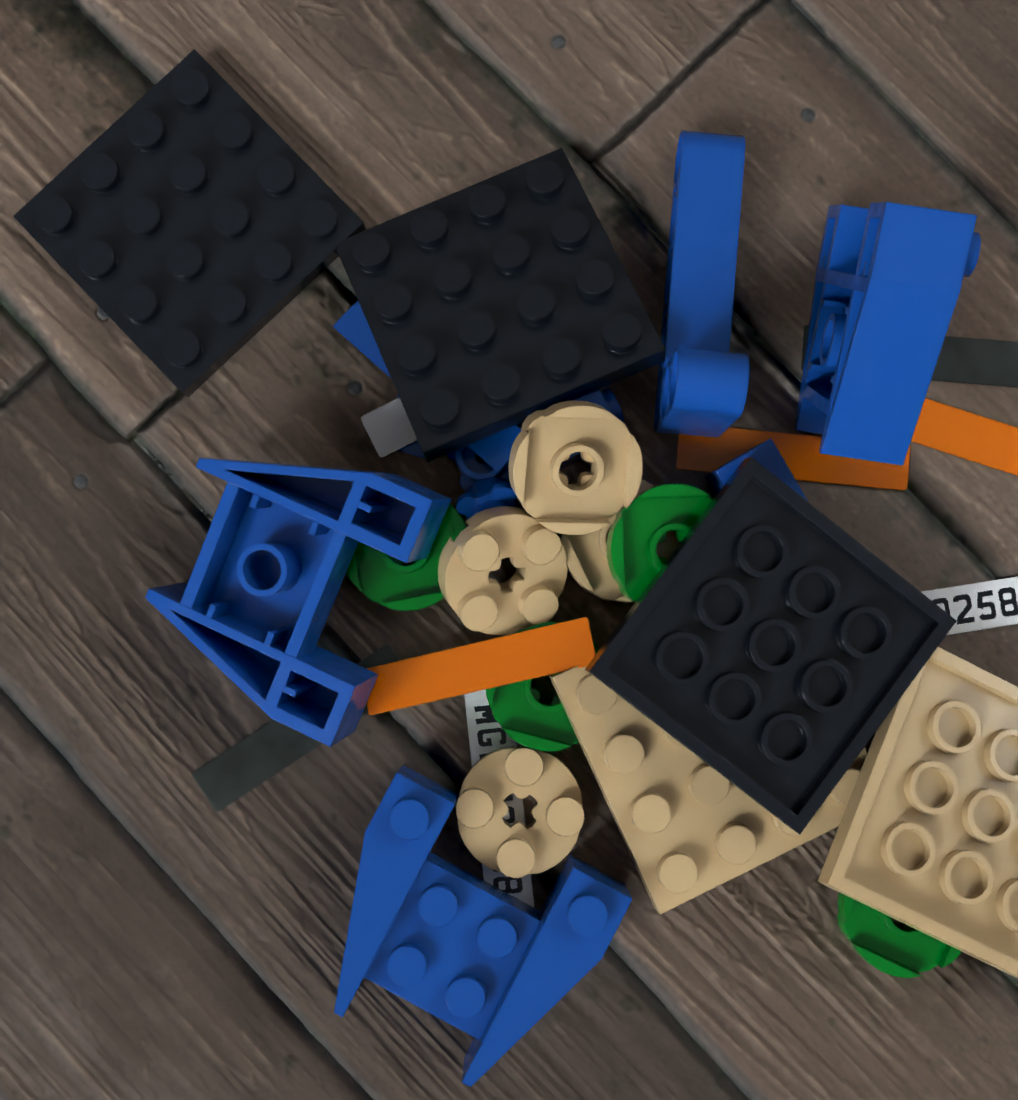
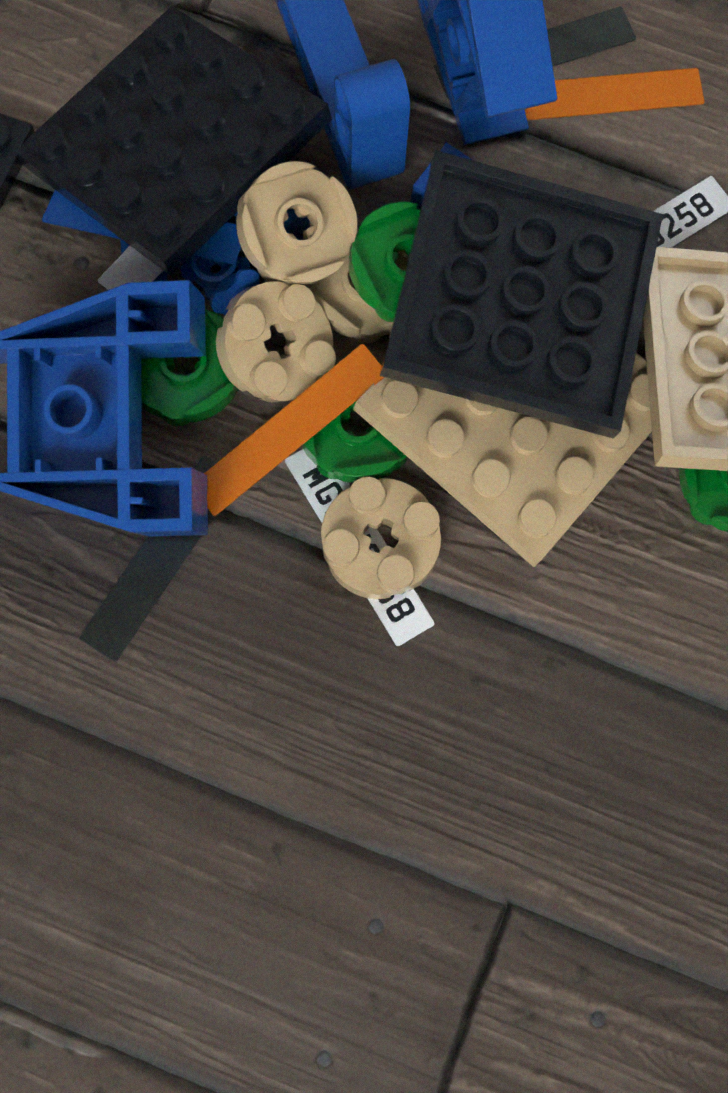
camera: 30 degrees left, 10 degrees down
(460, 940) = (378, 665): blue wedge -> none
(798, 452) = (513, 153): orange sticker -> none

